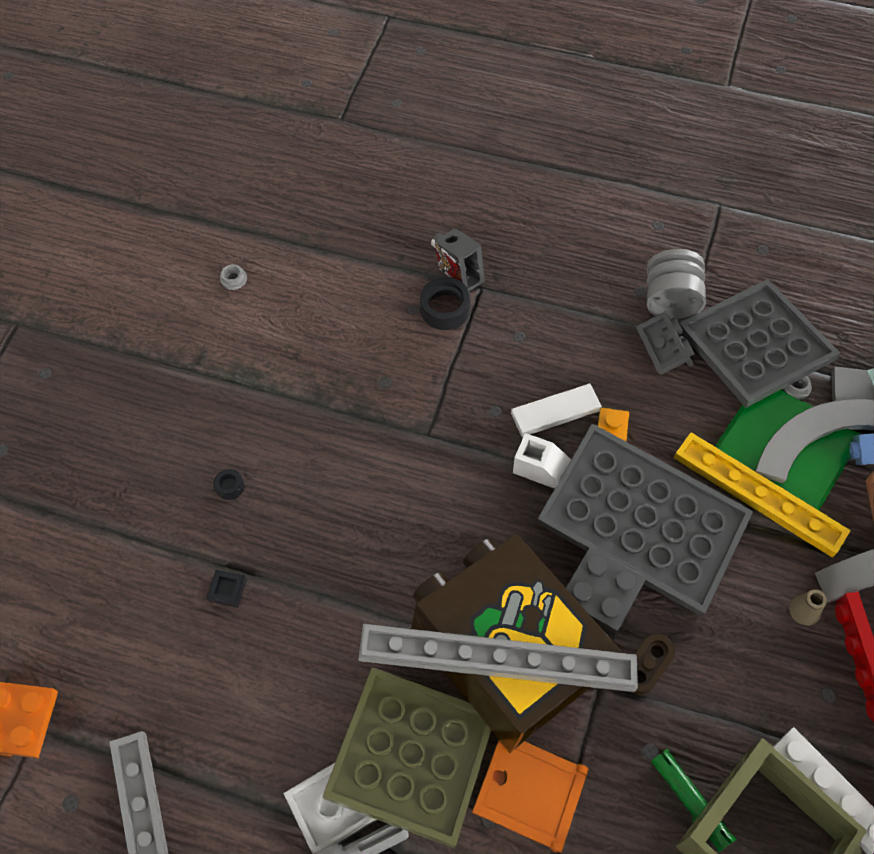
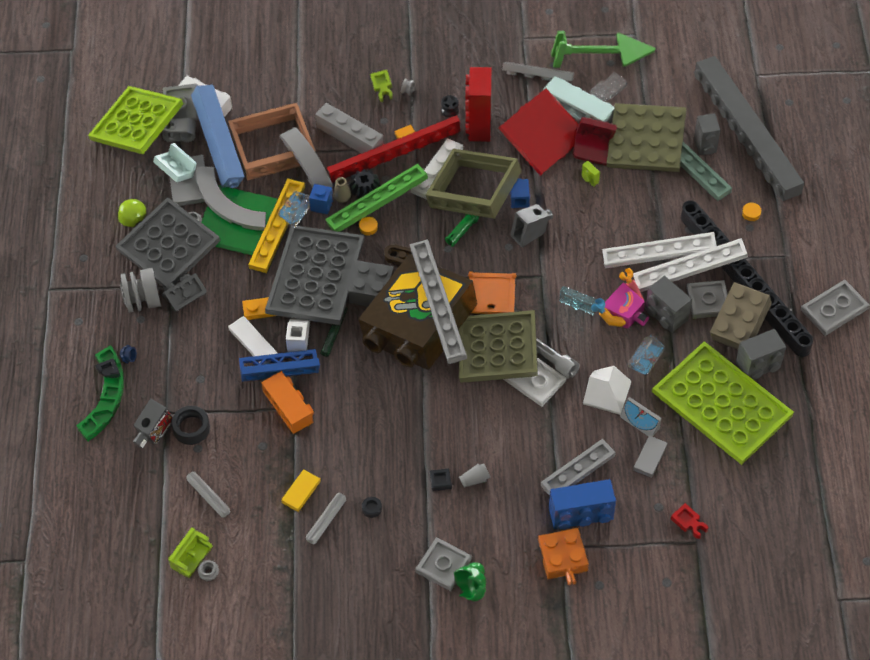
camera: 110 degrees left, 5 degrees down
(43, 573) = (471, 581): none -> green piece
(59, 776) = (582, 504): none -> blue brick
(97, 549) = (442, 562): none -> light grey tile
(204, 638) = (475, 475): none -> light grey cone
(238, 423) = (326, 518): none -> light grey axle
(263, 262) = (190, 553): none -> lime hinge
(294, 405) = (300, 490): none -> yellow tile
(337, 301) = (208, 494): none -> light grey axle
(433, 421) = (288, 402): none -> orange brick
(487, 425) = (290, 368): none -> blue fence
(529, 514) = (331, 337): none -> clear green piece
(534, 236) = (109, 399): none -> green tile
(564, 233) = (108, 369): none -> black tile
(583, 261) = (128, 354): none -> dark blue plate
(728, 631) = (368, 226): none -> light orange tile
(779, 663) = (377, 198): none -> bright green plate
(782, 521) = (295, 208): none -> clear slope
(797, 569) = (321, 199): none -> blue brick
(826, 659) = (363, 183): none -> black gear
(829, 314) = (131, 212): none -> lime hair

